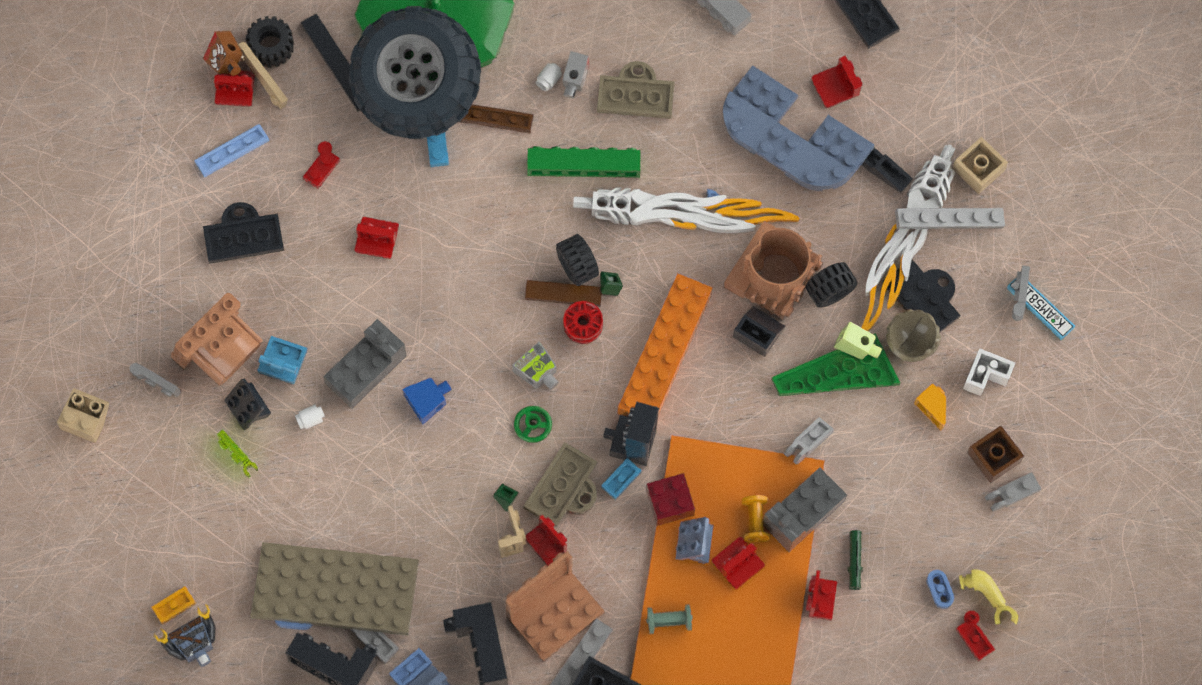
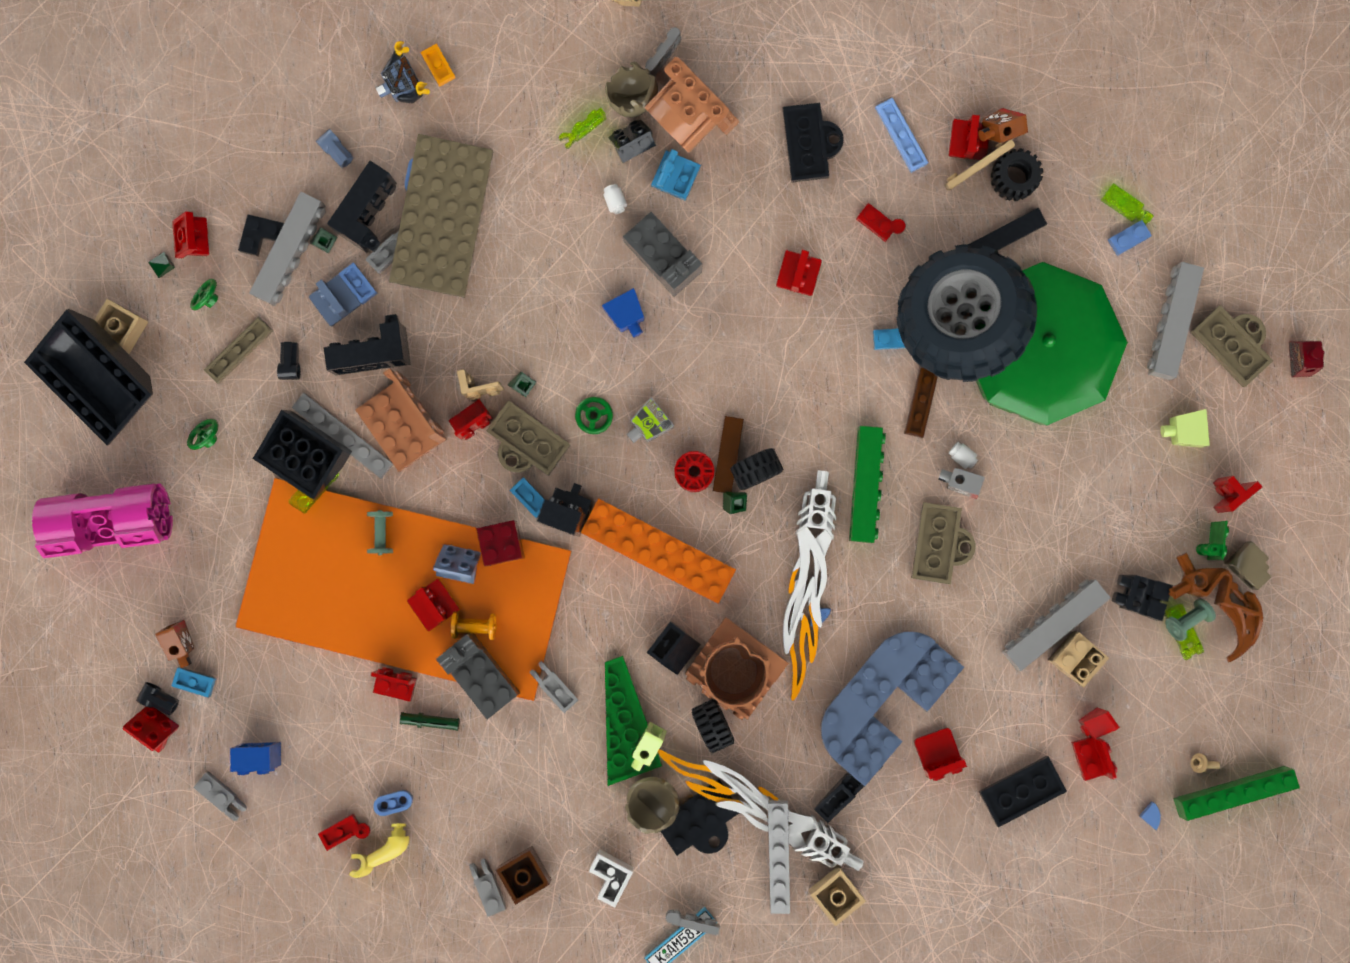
camera: 100 degrees right, 15 degrees up
(198, 403) = (631, 90): none -> dark tan piece
(933, 405) = (582, 817): light orange slope -> none

